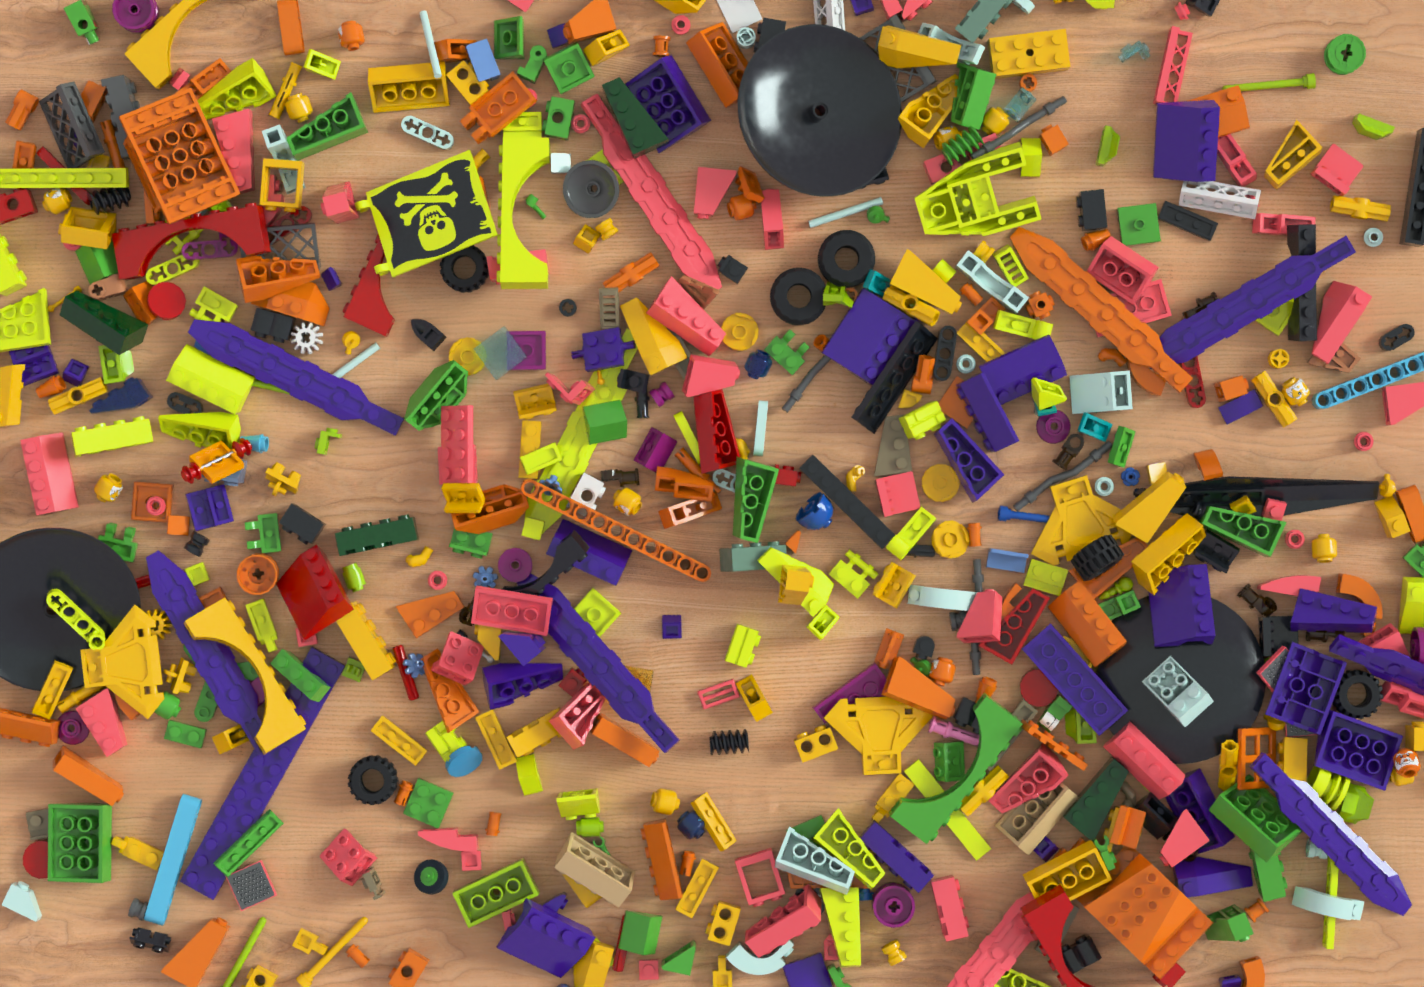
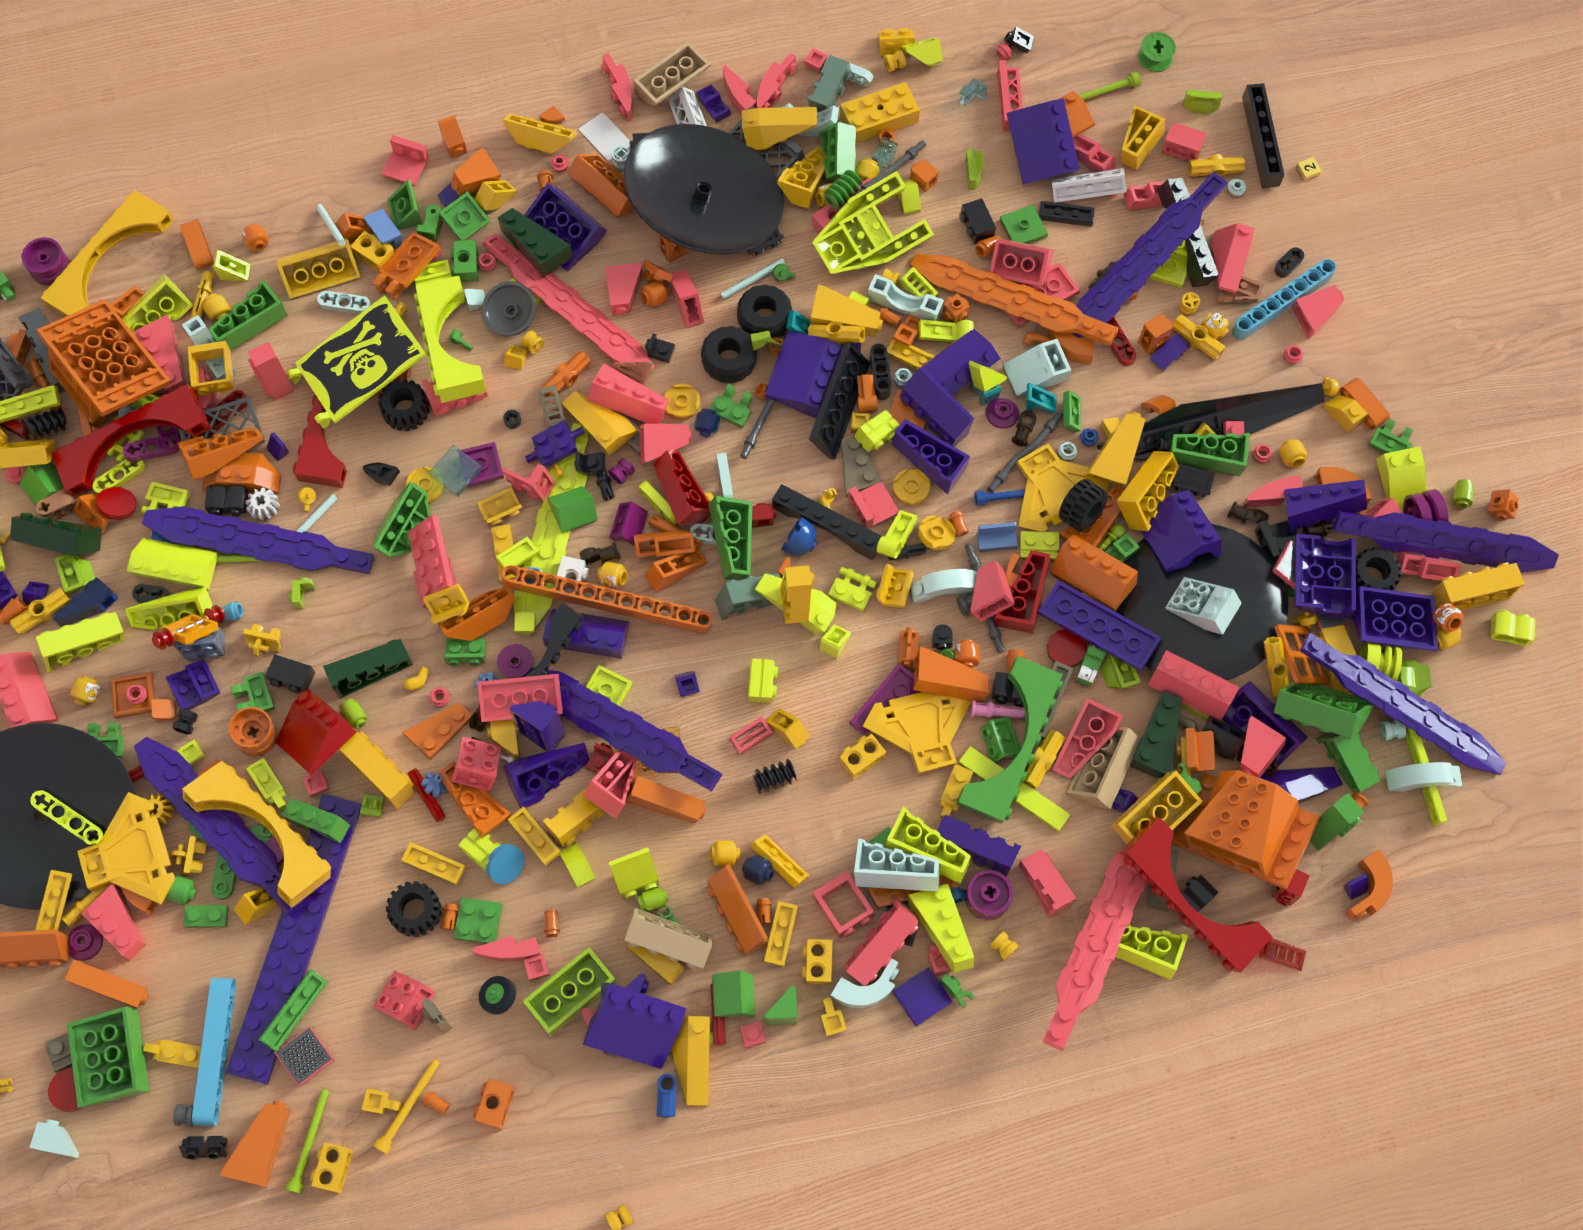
camera: 15 degrees left, 20 degrees down
(1060, 747) = (1097, 692): orange wing -> none

